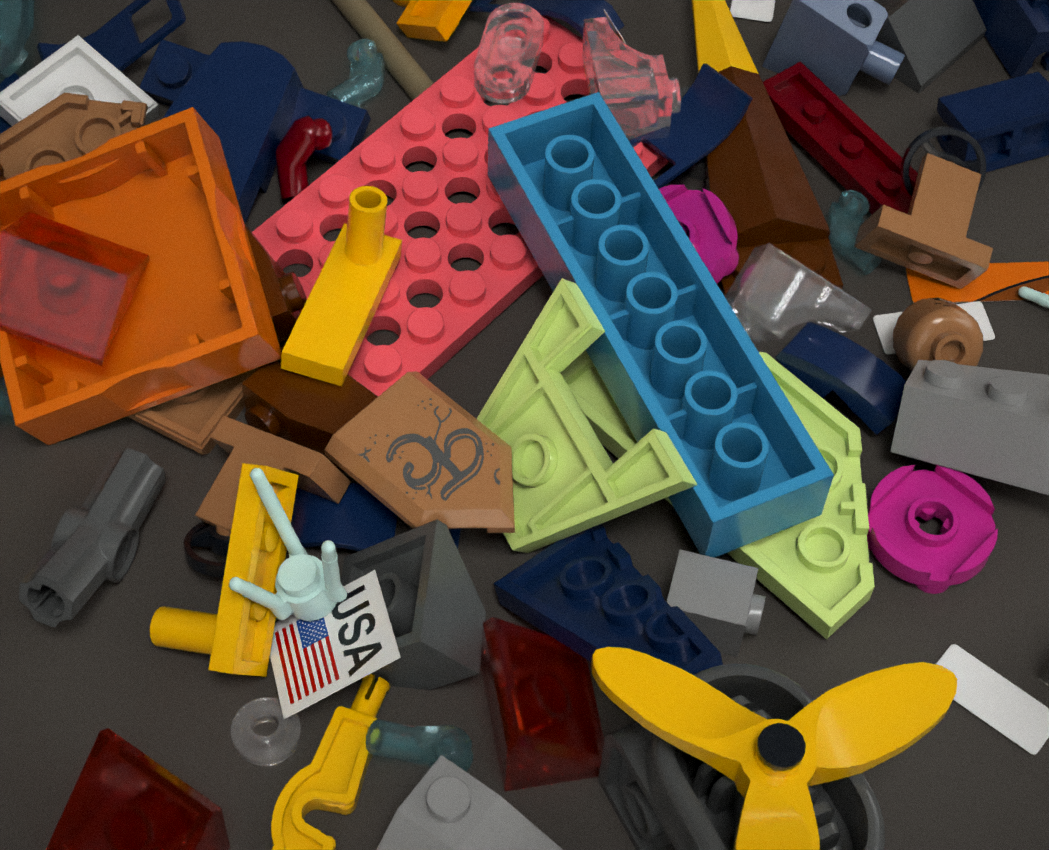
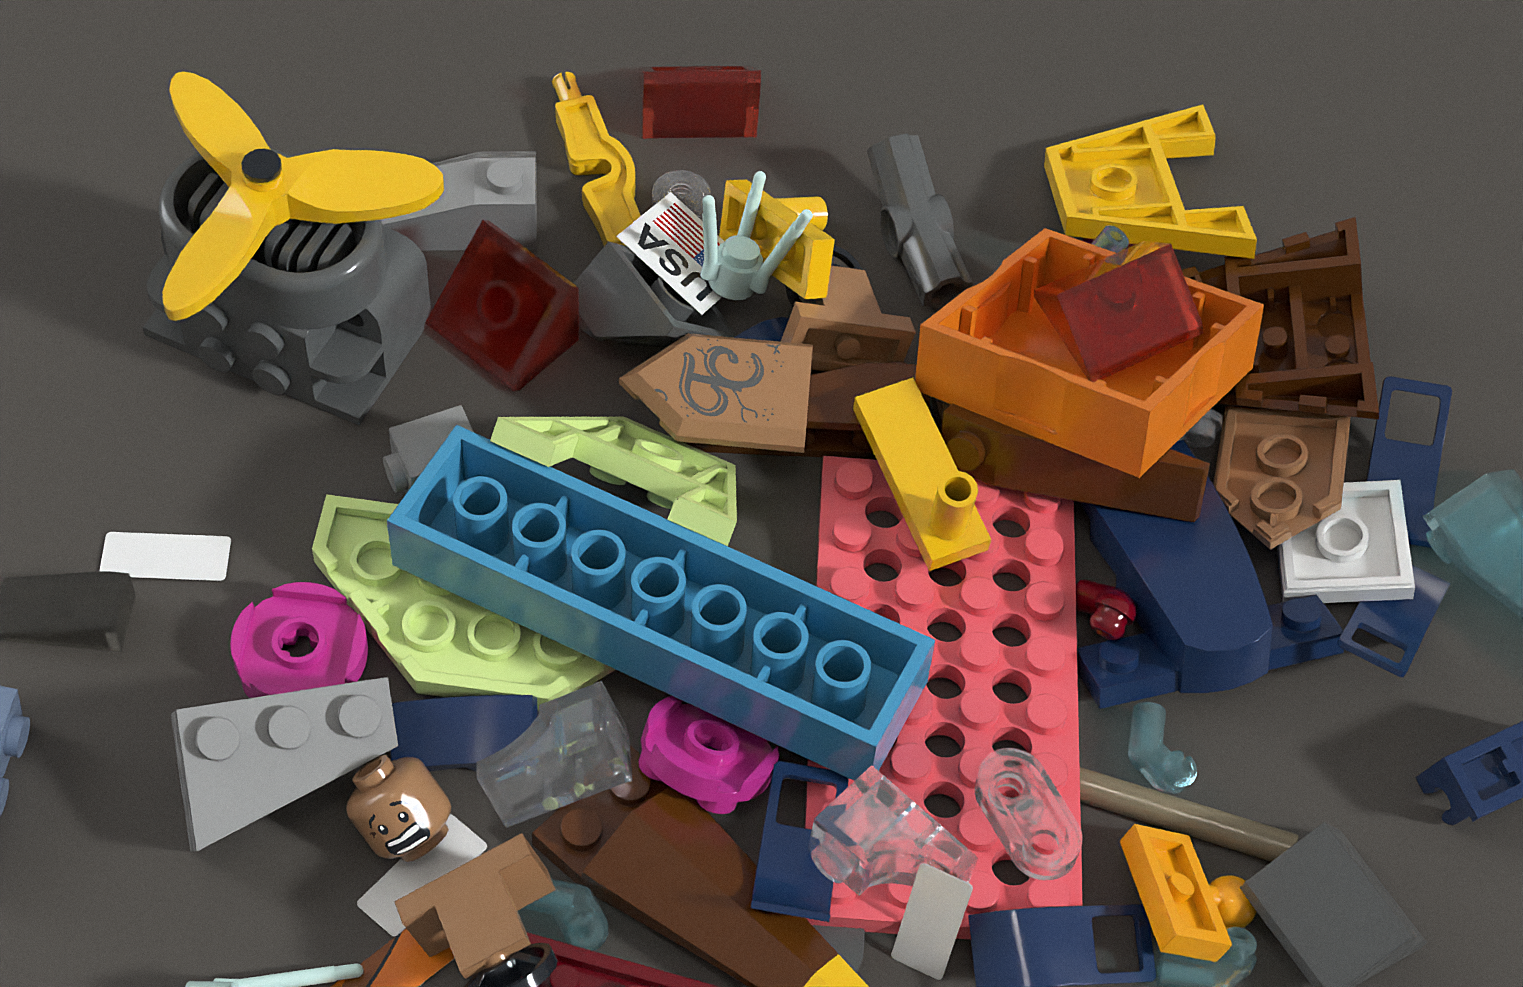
camera: 140 degrees right, 0 degrees up
(419, 743) = (574, 245): clear light blue arm -> none
(596, 599) = (484, 357): dark blue wing -> none

